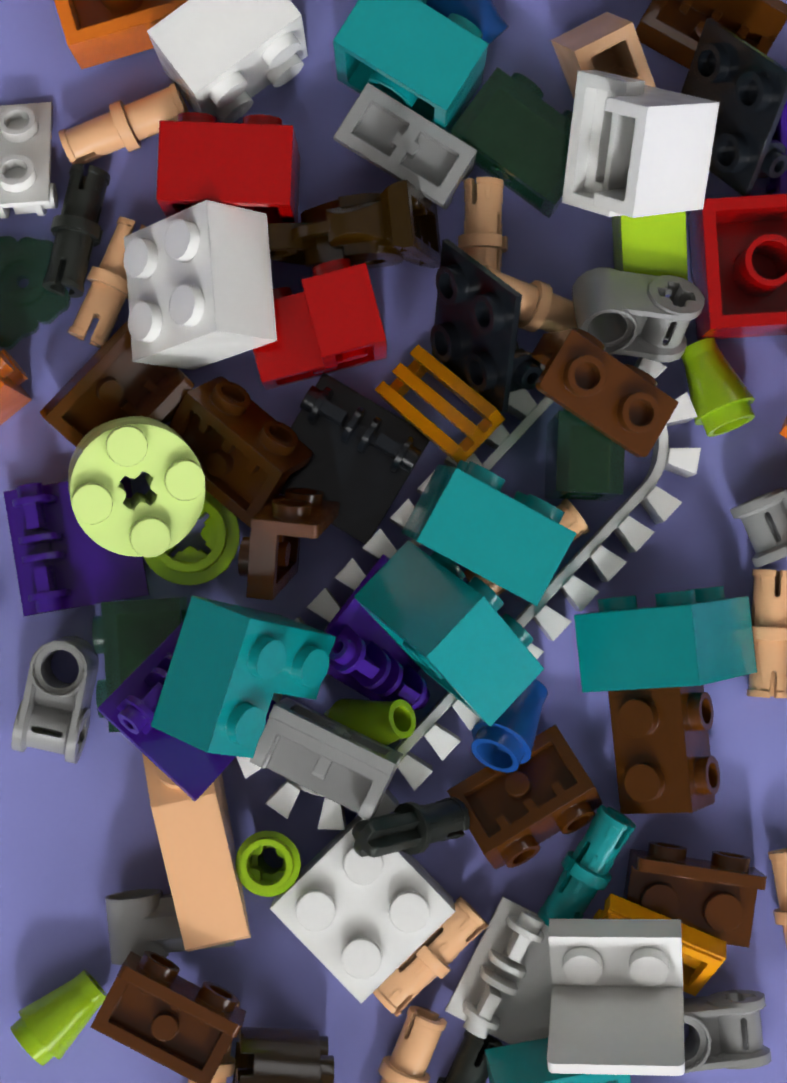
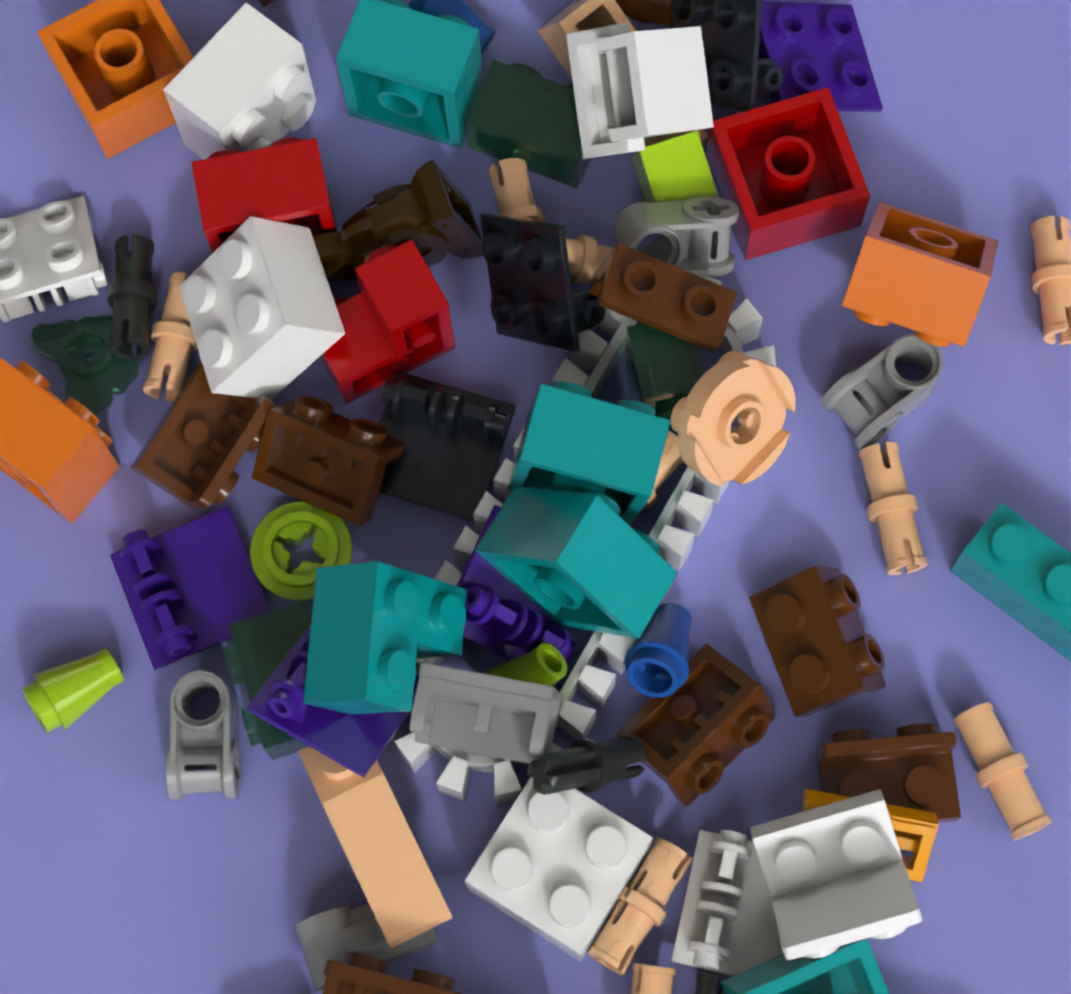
camera: 10 degrees left, 15 degrees down
(122, 126) = (154, 198): light nougat pin -> none
(146, 522) = (273, 481): yellowish green brick -> none
(259, 876) = (442, 826): lime cone -> none
(272, 550) = (385, 525): reddish brown bracket -> none
(406, 145) = (412, 137): light grey hinge -> none
(410, 378) = (519, 345): light orange tile -> none
(588, 866) = (777, 769): teal pin -> none
(640, 529) = (707, 413): none -> light nougat plate
(680, 642) = (788, 527): teal brick -> none
(715, 389) = (776, 296): lime cone -> none
(725, 1031) = (956, 909): light grey piece -> none

